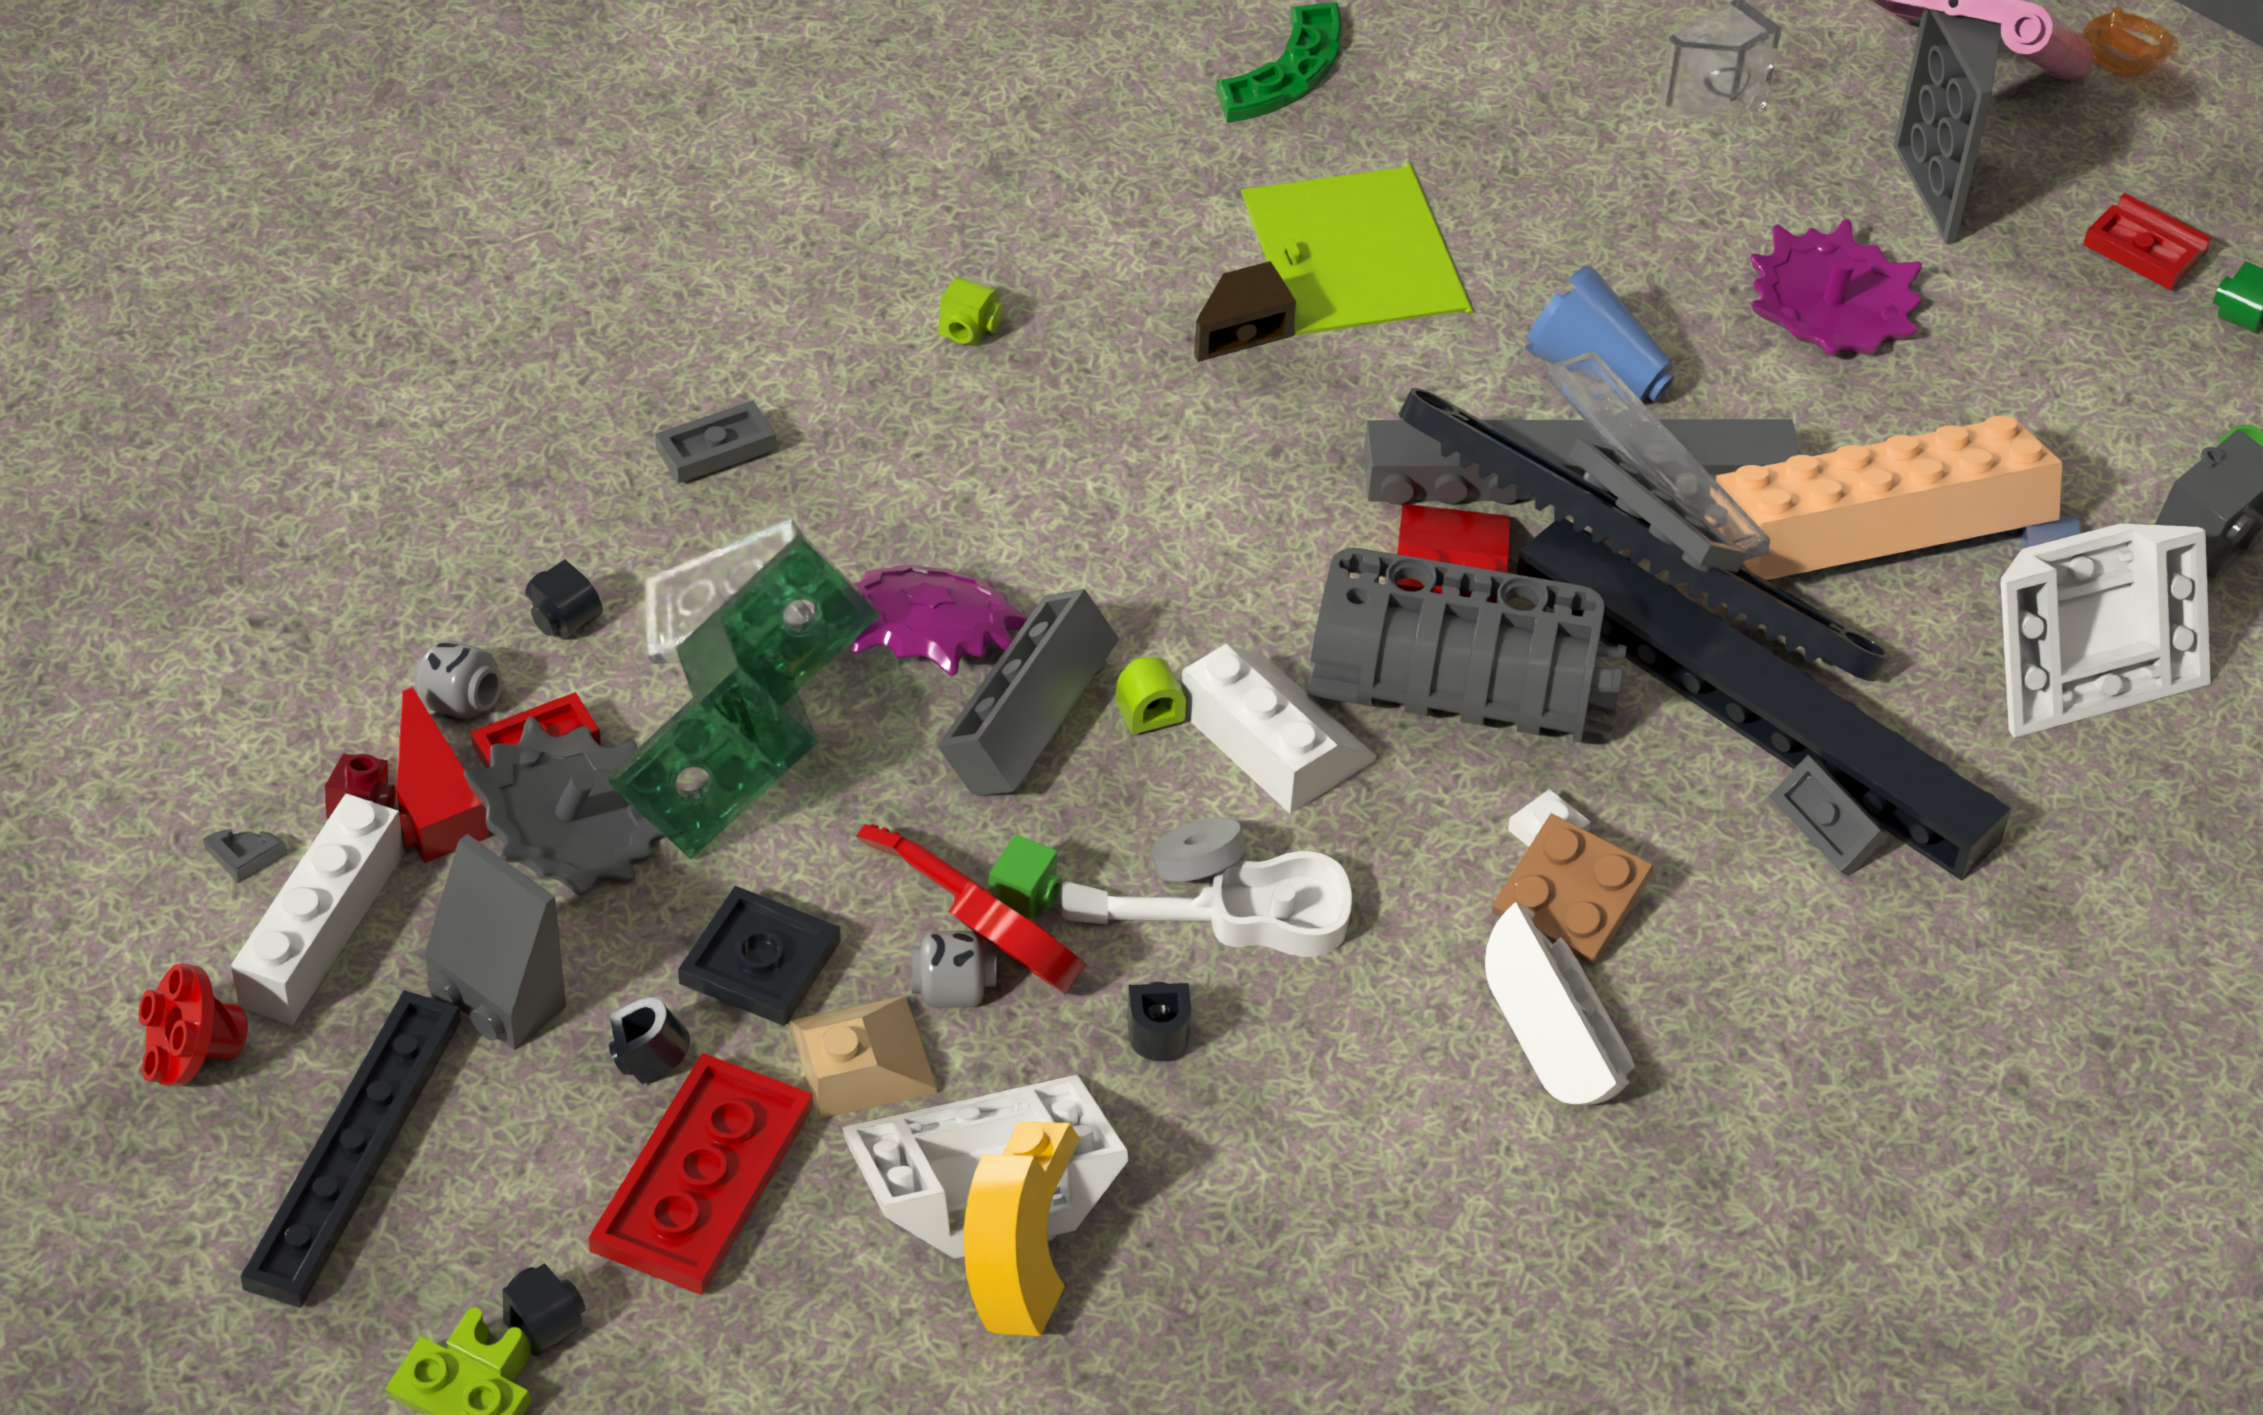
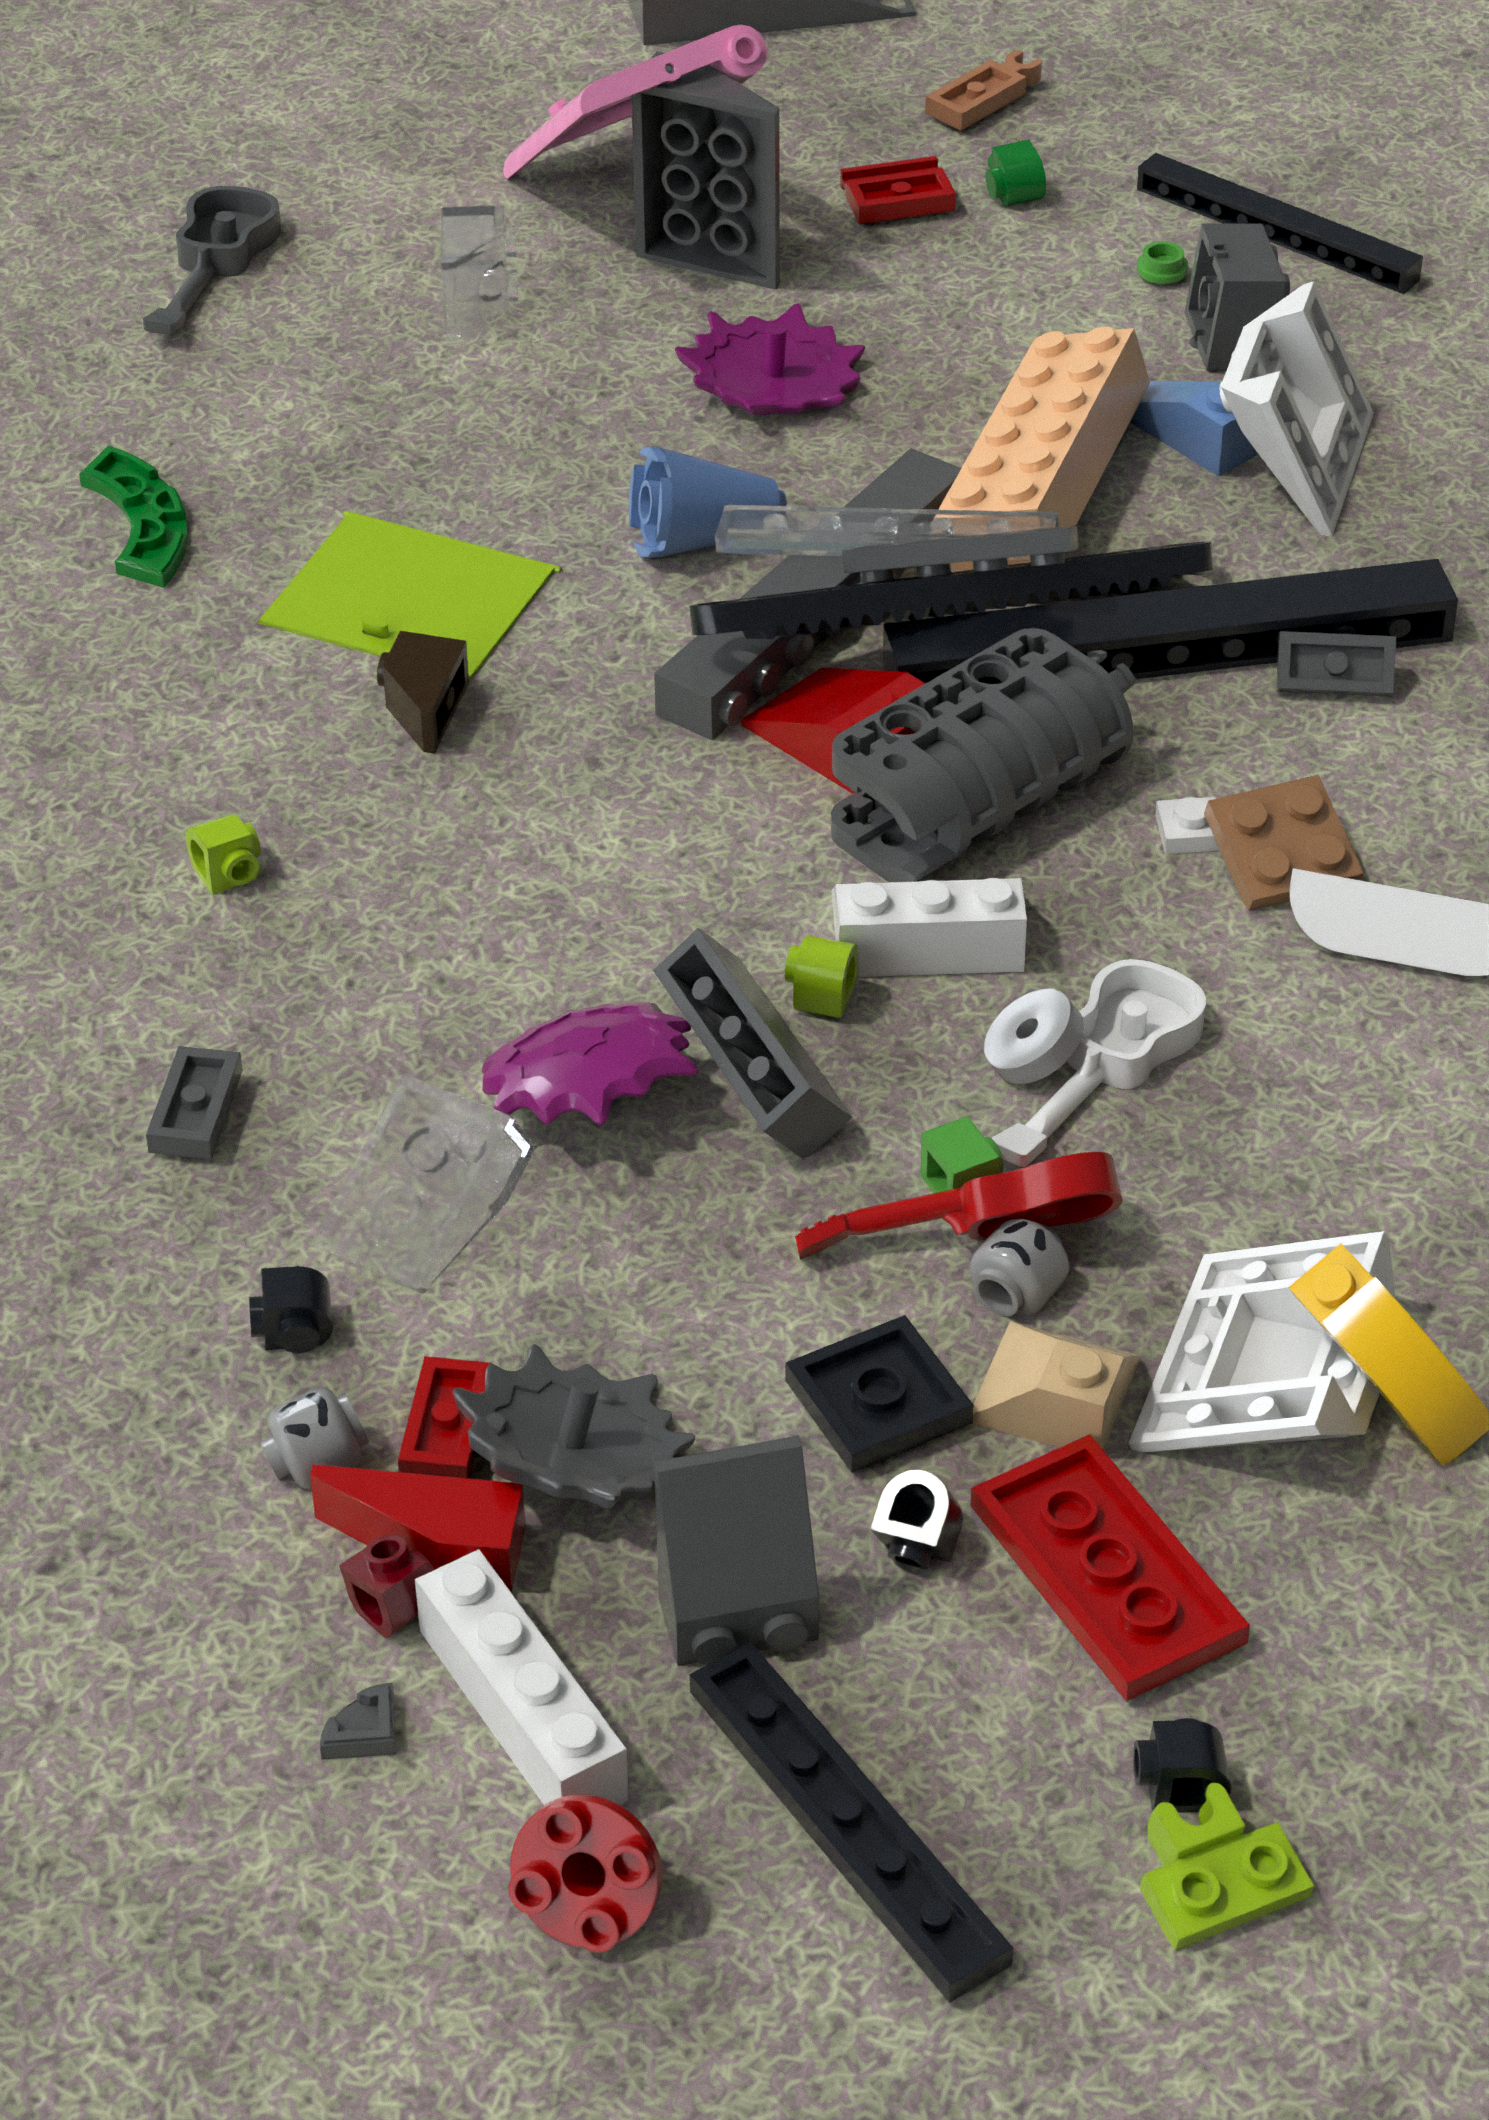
camera: 50 degrees left, 5 degrees down
(745, 703) = (632, 1214): clear green bracket -> none
(1159, 1019) = (1204, 1160): black plate -> none

